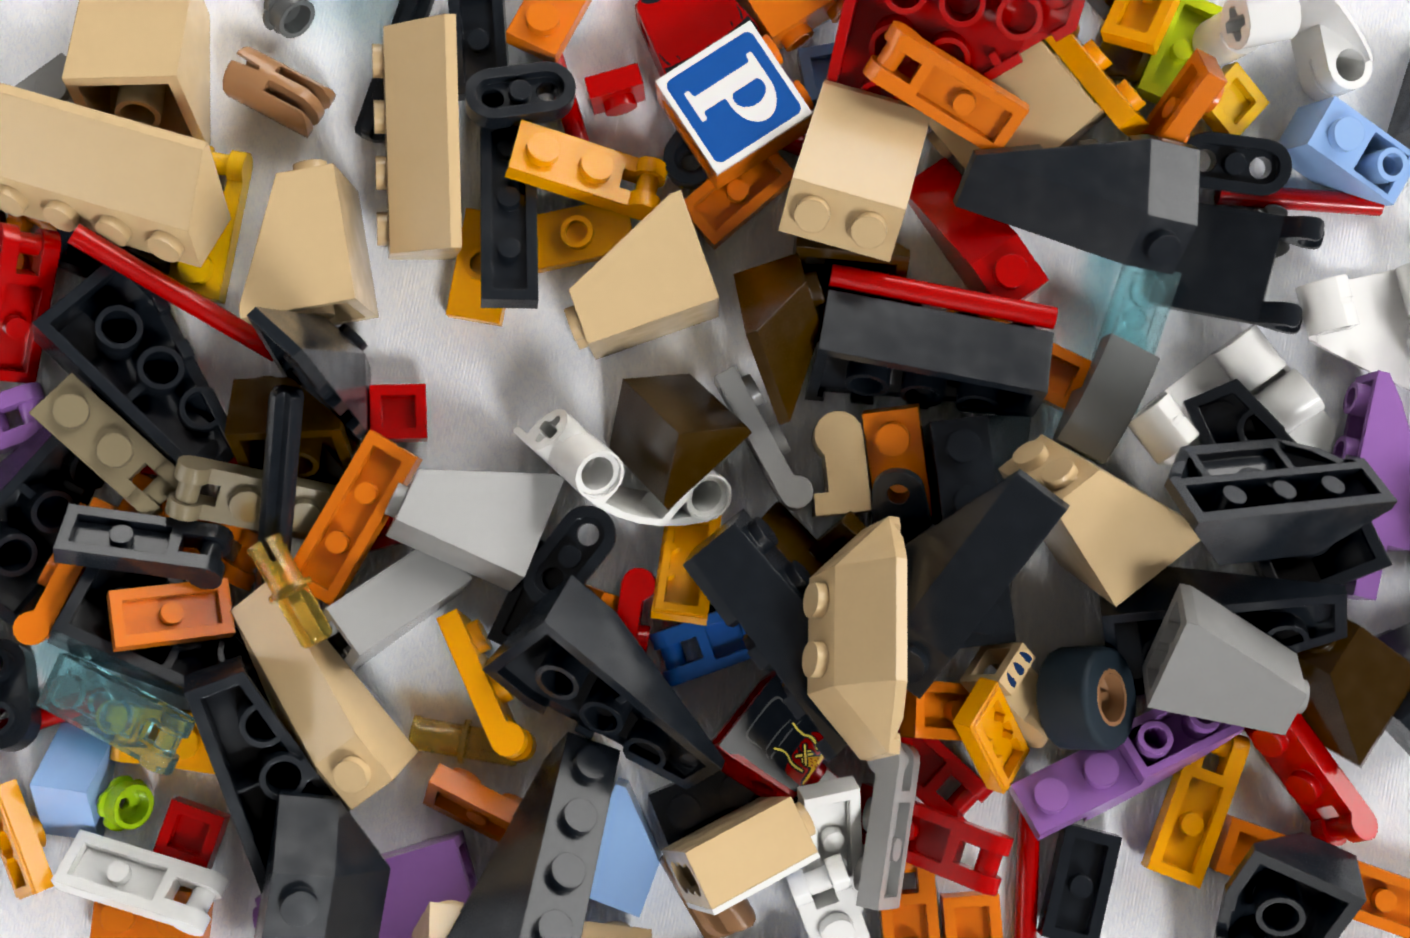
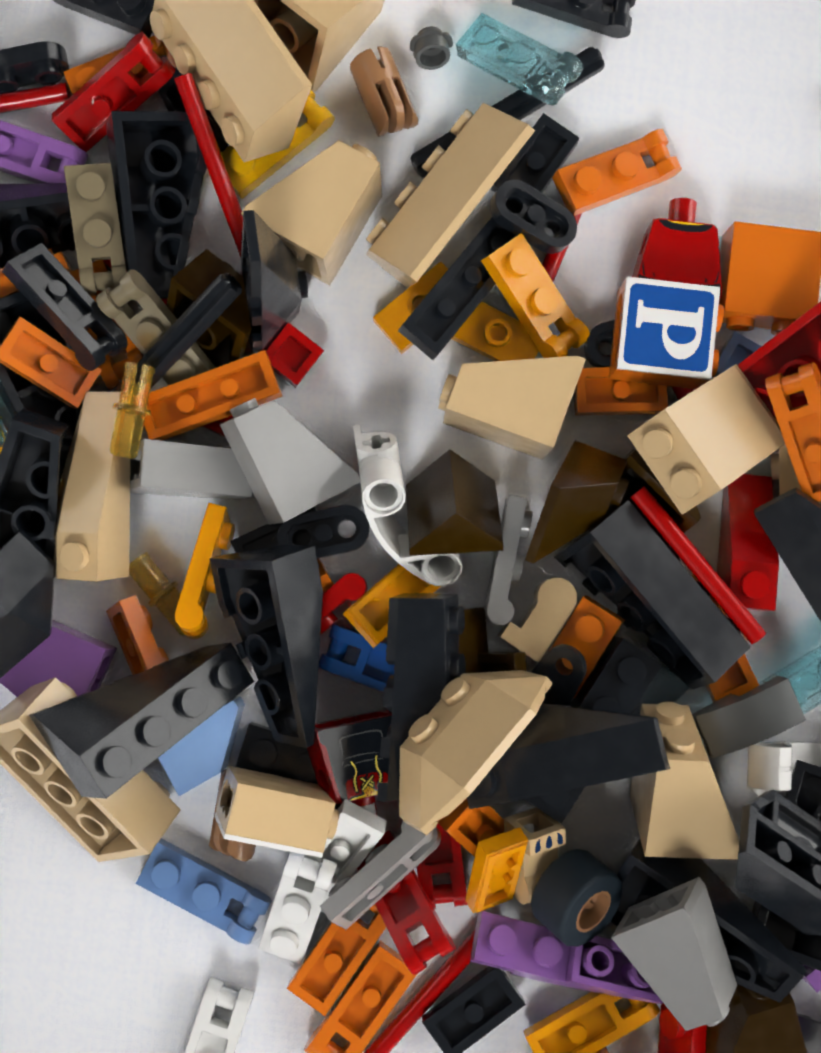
camera: 40 degrees right, 0 degrees up
(616, 90) = (596, 263): red plate -> none

